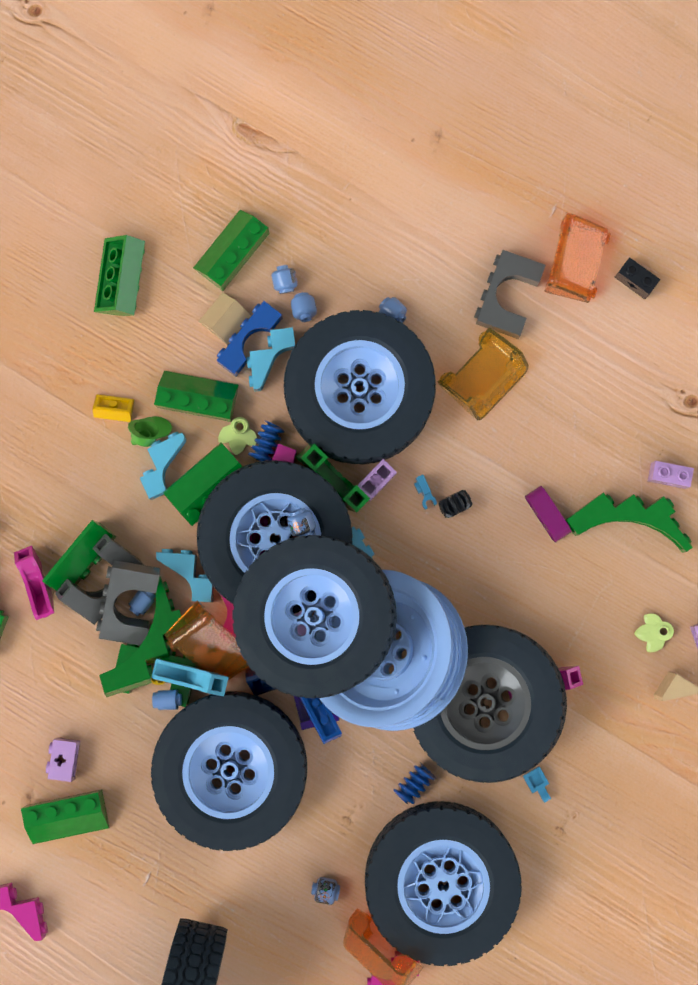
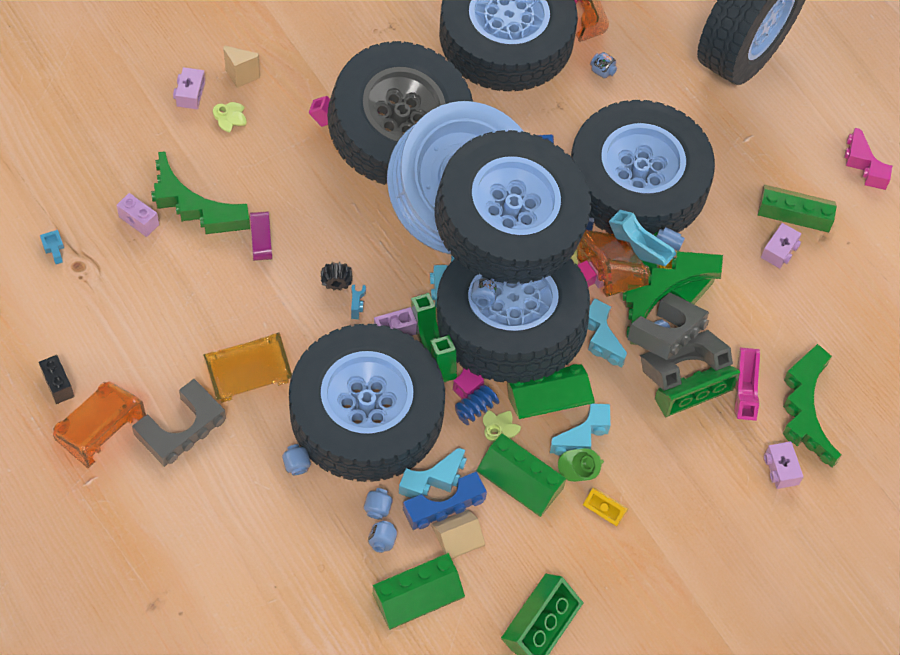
camera: 160 degrees left, 25 degrees down
(414, 784) = (493, 97): blue piece -> none

